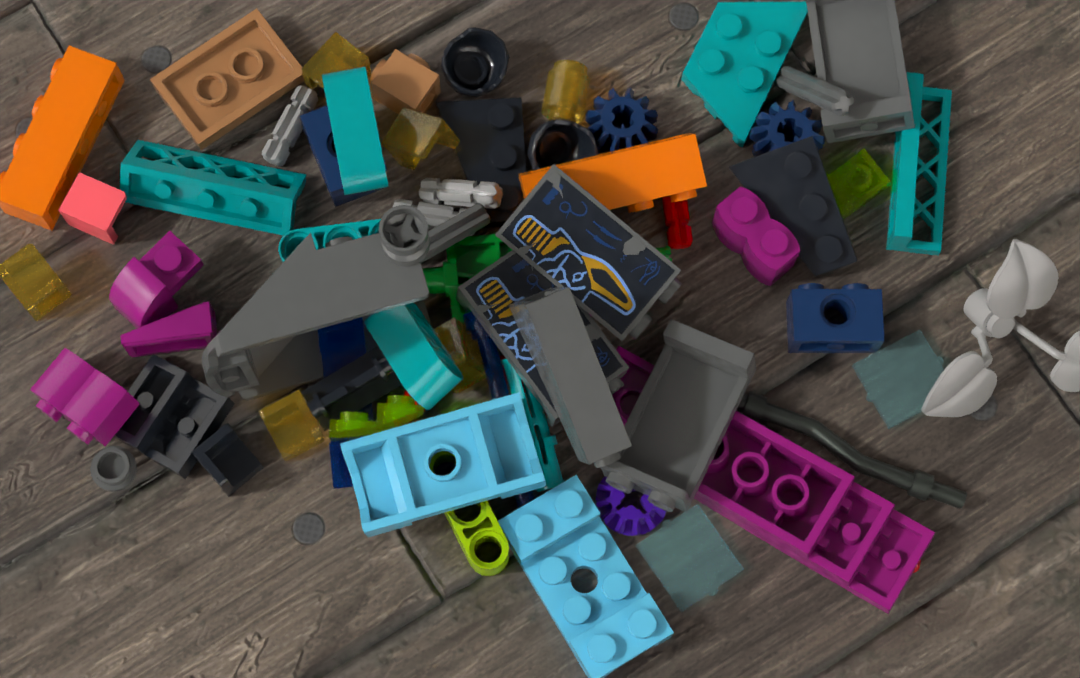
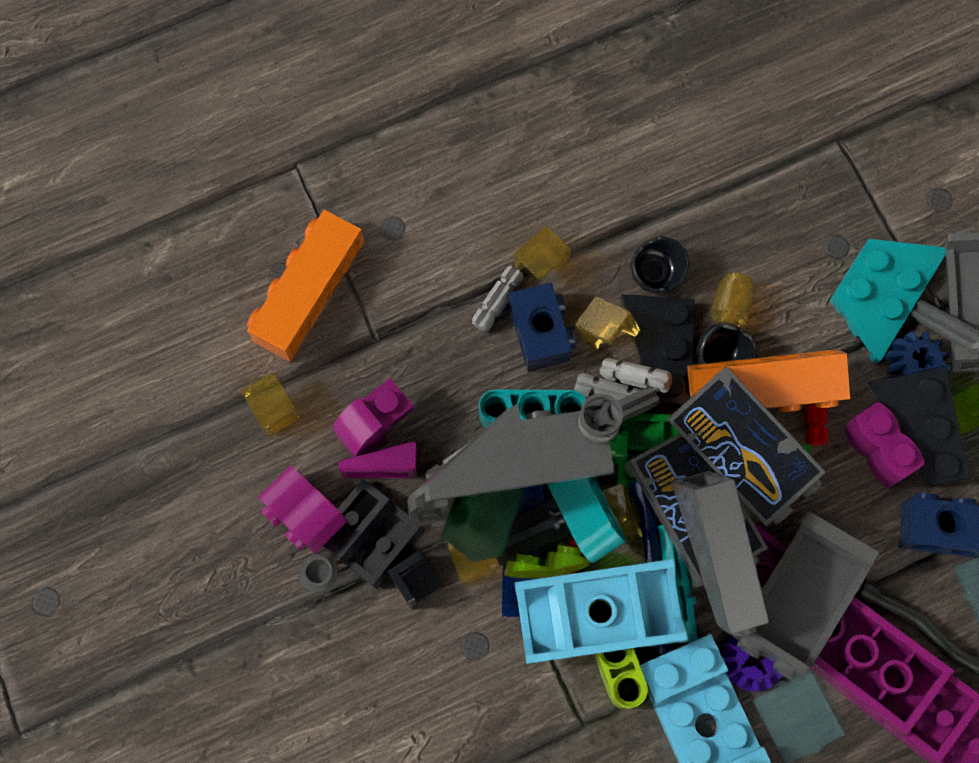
camera: 10 degrees right, 0 degrees up
(93, 207) = (328, 348): coral panel -> none
(210, 191) = (424, 345): teal fence -> none
(228, 79) = (451, 253): medium nougat plate -> none
(293, 376) = (482, 523): none -> clear green brick
(355, 130) = (555, 313): teal beam -> none
(405, 83) = (598, 275): medium nougat brick -> none
(621, 110) = (783, 321): dark blue gear -> none

